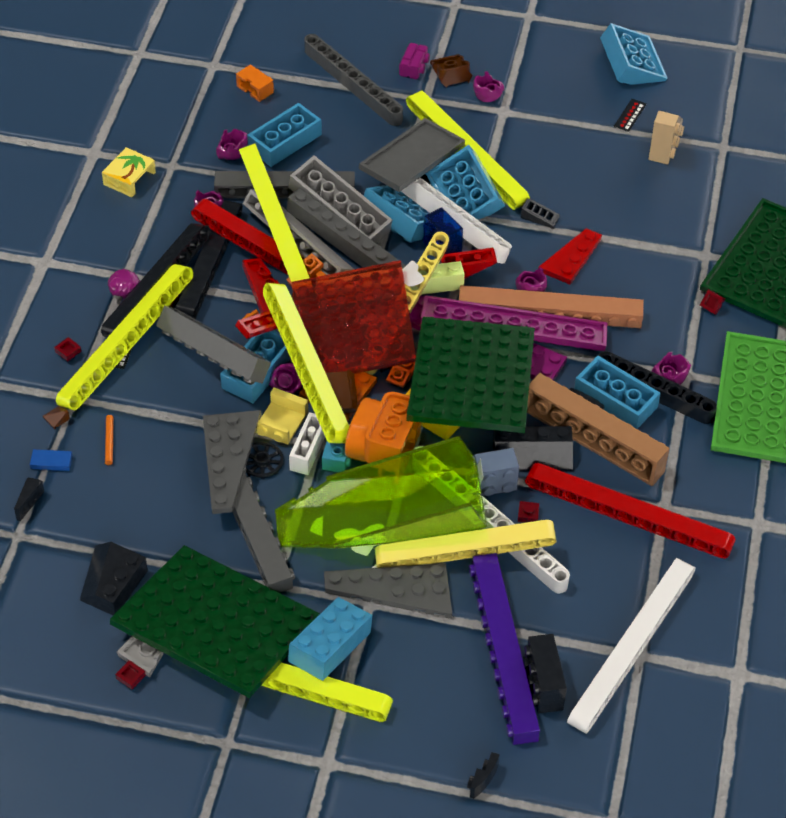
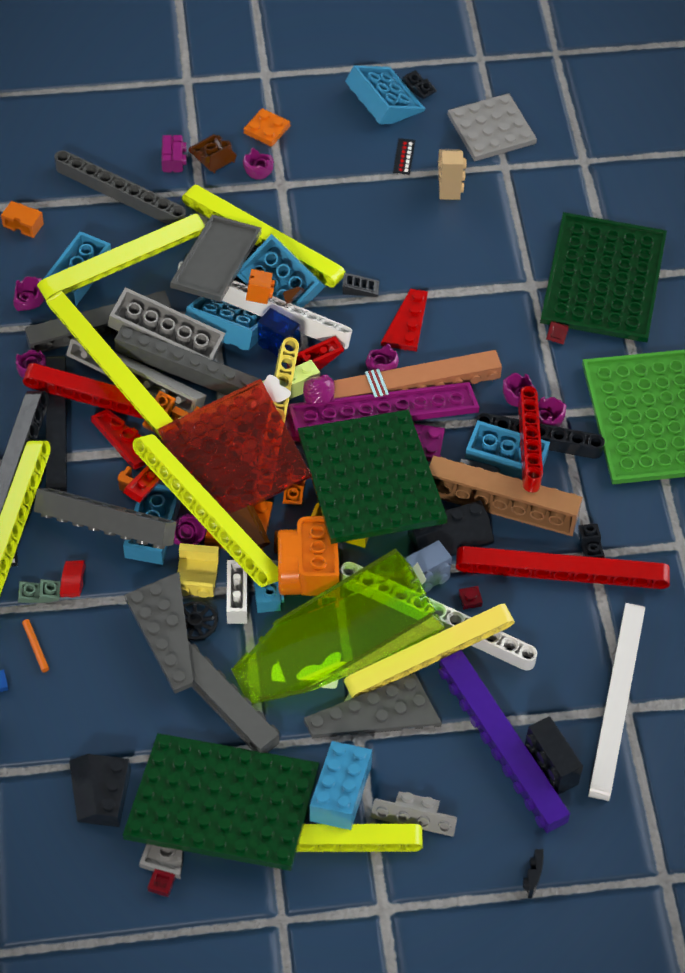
camera: 20 degrees left, 5 degrees up
(132, 396) = (39, 592): none -> sand green slope
(165, 392) = (72, 579): none -> red slope
(326, 132) = (122, 256): none -> neon yellow beam
(393, 683) = (415, 810): none -> light grey bracket
(440, 187) = (260, 286): none -> orange brick
(457, 288) = (319, 389): none -> magenta hair
(469, 201) = (292, 294): none -> reddish brown slope
(511, 60) = (266, 127): none -> orange plate
(516, 299) = (377, 383): none -> clear light blue sticker
(639, 383) = (530, 439): none -> red beam
(652, 341) = (512, 387): none -> magenta hair
(667, 493) = (590, 540): none -> black slope
(669, 57) = (418, 85): none -> black slope
(725, 109) = (492, 127): none -> light grey plate

